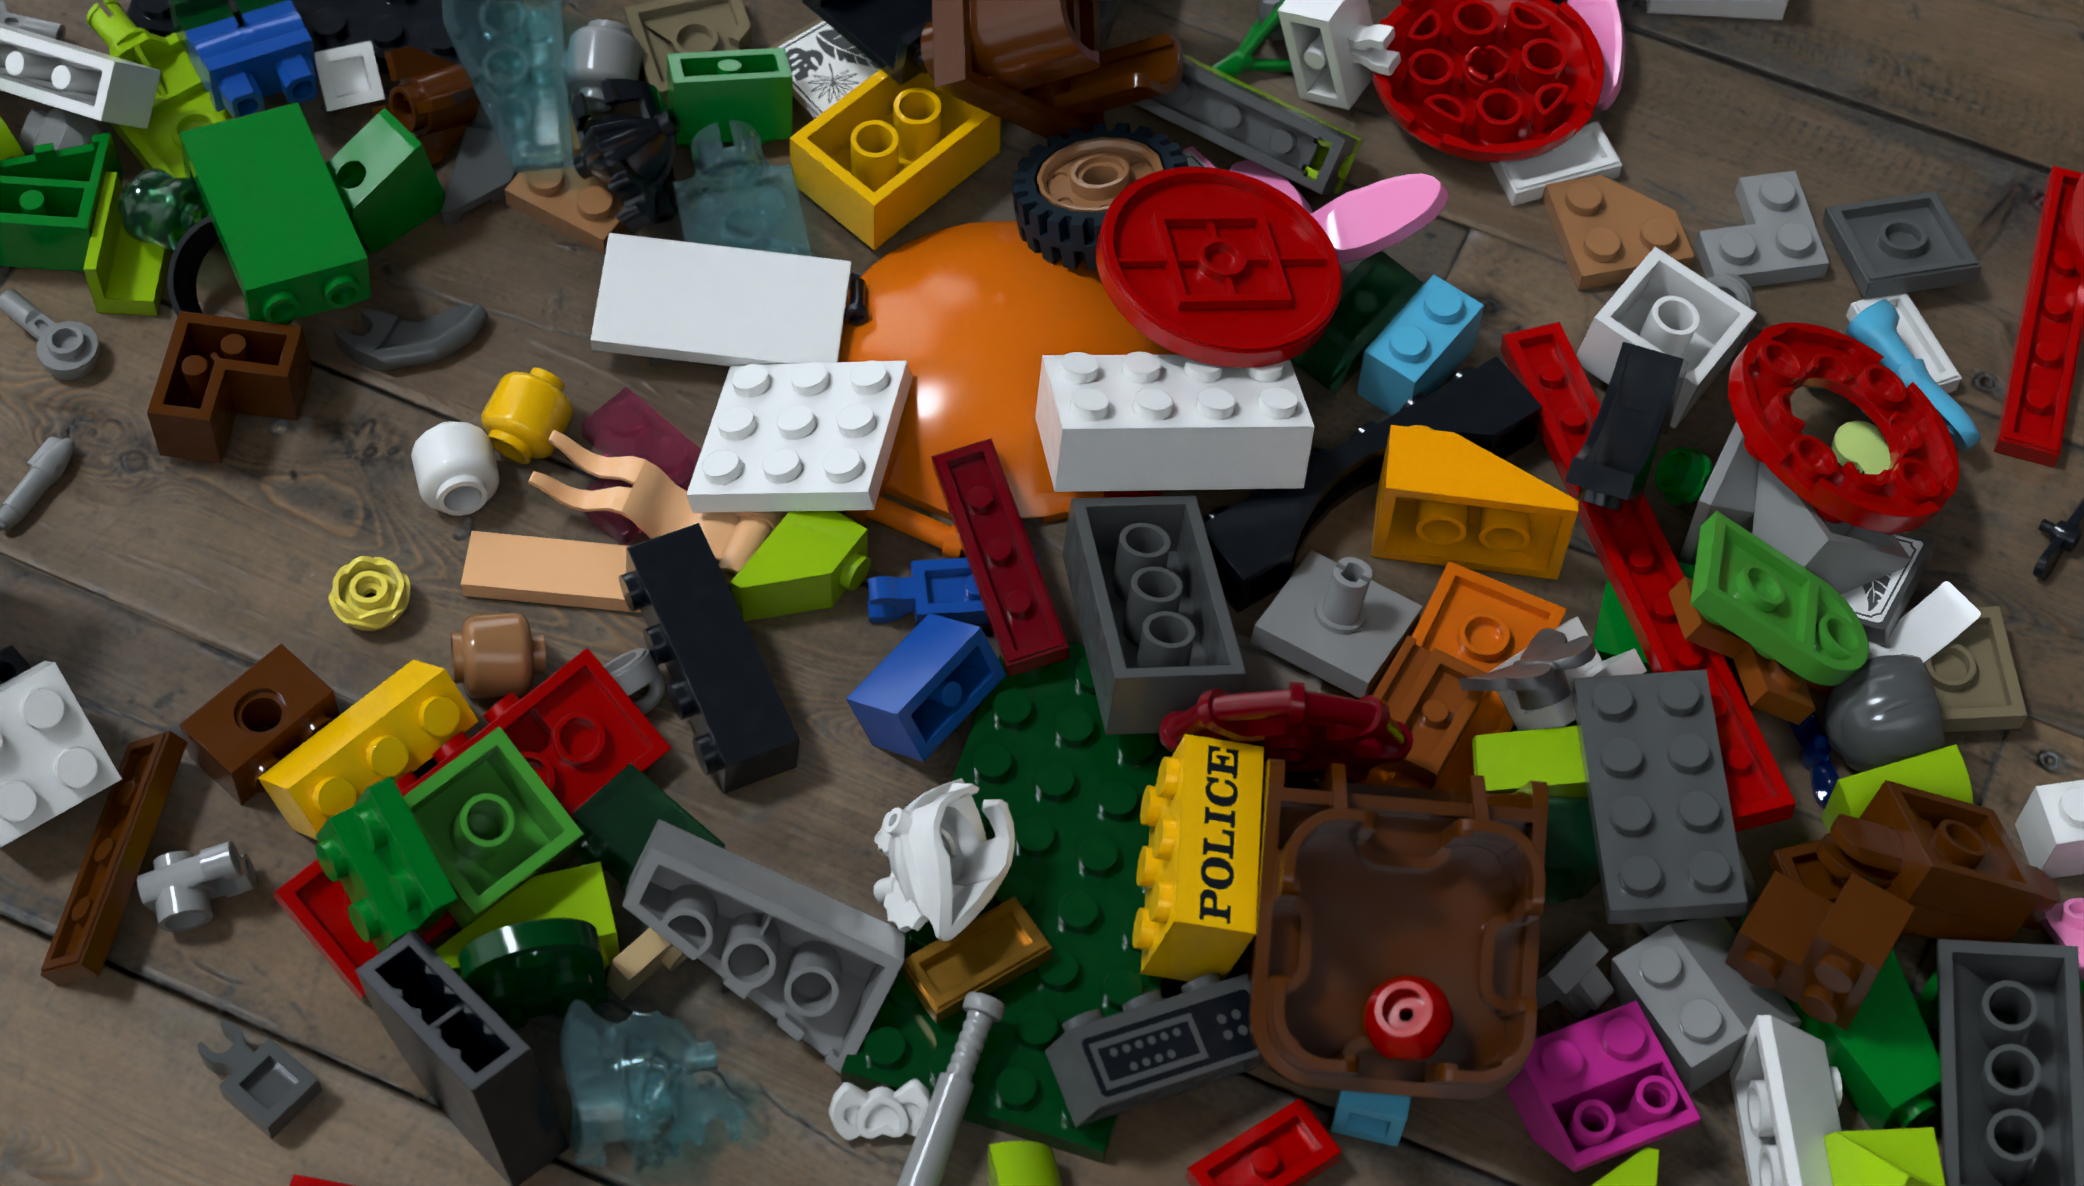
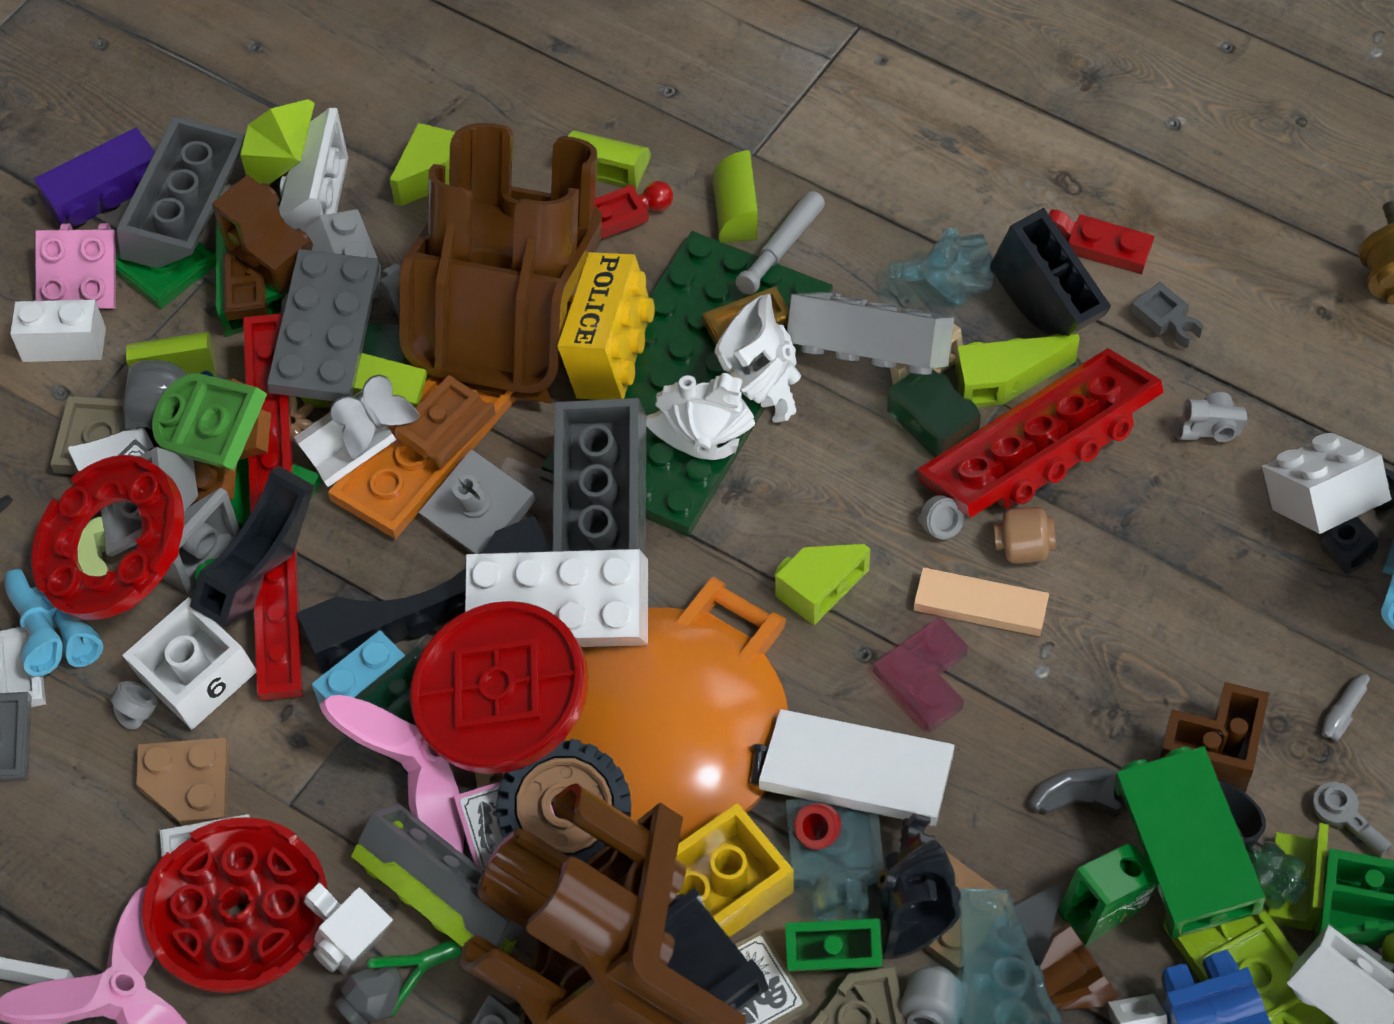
camera: 165 degrees left, 0 degrees up
(113, 859) = (1261, 440): reddish brown tile -> none
(270, 692) = (1167, 529): reddish brown brick -> none
(368, 576) = (1114, 582): light yellow plate -> none
(375, 738) = (1107, 474): yellow brick -> none
(384, 867) = (1095, 358): green plate -> none
(455, 467) = (1052, 668): white head -> none
(490, 824) = (1037, 389): bright green brick -> none
(525, 413) = (1001, 704): yellow head -> none
(536, 968) = (1008, 310): dark green plate -> none
(657, 504) = (899, 625): light nougat flag -> none
(710, 659) = (888, 514): black brick -> none
(765, 226) = (817, 814): none -> red piece
(800, 437) = (811, 647): white plate -> none
(879, 1110) = (812, 263): white piece -> none
(926, 686) = (751, 480): blue brick -> none
(933, 587) = (717, 551): blue plate -> none
(1000, 557) = (690, 555): dark red tile -> none
(1015, 732) = (702, 416): none -> white helmet
(1154, 1048) = (665, 247): dark grey brick -> none
(1297, 726) = (548, 344): dark red plate -> none
(1412, 1038) = (508, 193): red plate -> none
(1468, 507) = (381, 547): light orange slope -> none
(1600, 1089) = (397, 214): dark pink slope -> none
(1778, 236) = (72, 754): light grey plate -> none
(1944, 861) = (171, 290): reddish brown brick -> none

